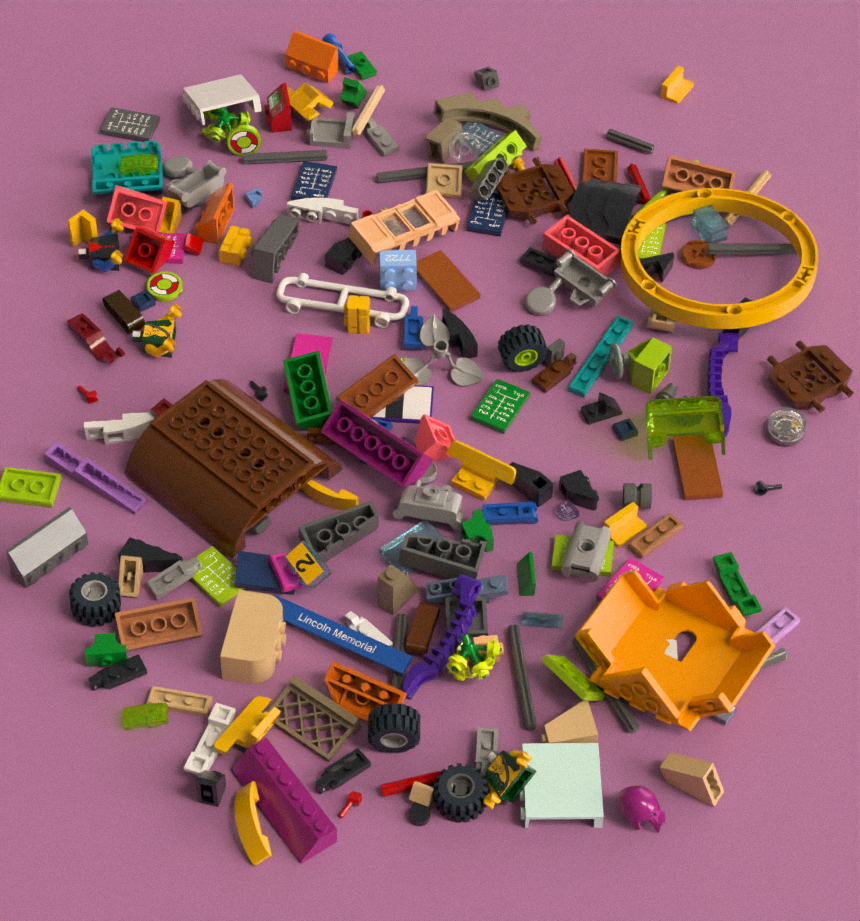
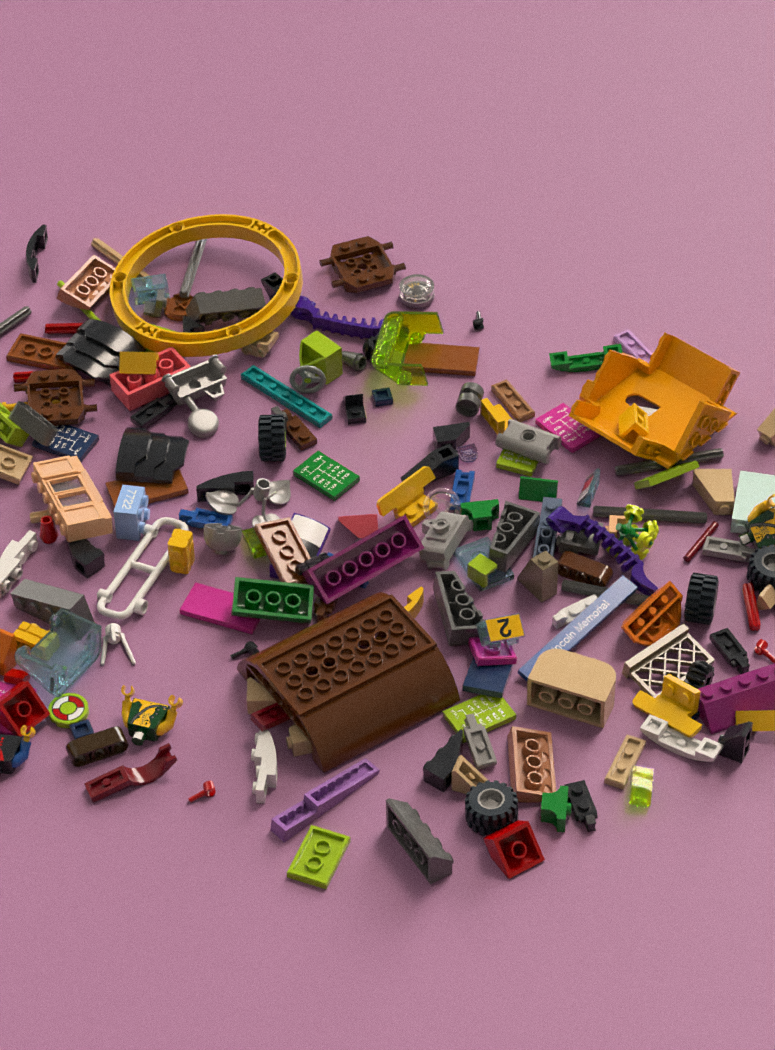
camera: 75 degrees left, 5 degrees down
(52, 625) = (514, 848): none -> red slope
(208, 259) = (62, 653): none -> clear light blue windscreen
(254, 294) = (113, 636): none -> white plant
(291, 743) = (699, 674): none -> black gear
(366, 409) = (302, 567): none -> black axle
(388, 339) = (222, 537): none -> light grey cylinder
(391, 538) = (479, 569): none -> lime panel
(472, 495) = (431, 496): none -> clear piece
(482, 268) = (149, 456): none -> black slope
(502, 729) = (700, 542): none -> dark red bar
(585, 227) = (138, 362): none -> yellow panel
(638, 636) = (634, 419): none -> yellow panel
(687, 232) = (155, 309): none -> dark grey bracket
(697, 275) = (225, 305): none -> dark grey wedge
(730, 132) = (37, 241): none -> black slope

